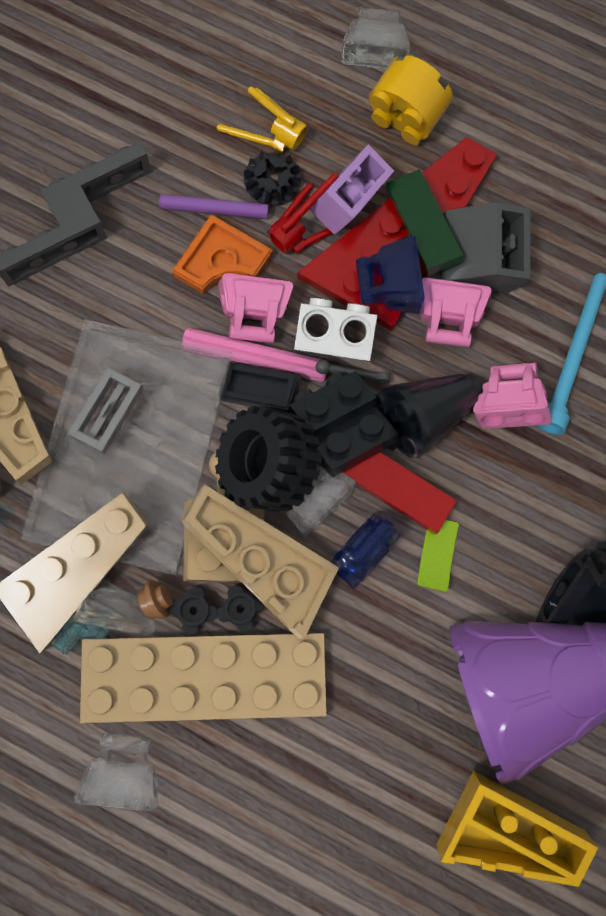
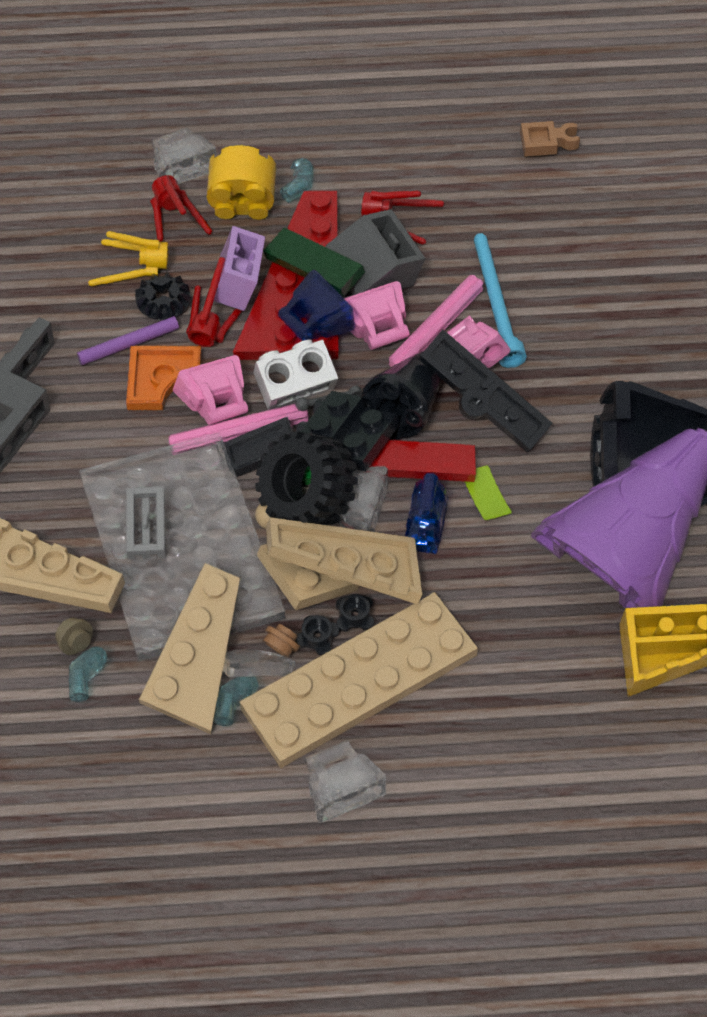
camera: 25 degrees left, 20 degrees down
(339, 76) = (171, 197): none -> red plant
(472, 124) = (302, 180): none -> clear light blue arm
(496, 455) = (484, 392): none -> black hinge
(503, 346) = (439, 319): none -> bright pink axle
(526, 192) = (381, 201): none -> red plant

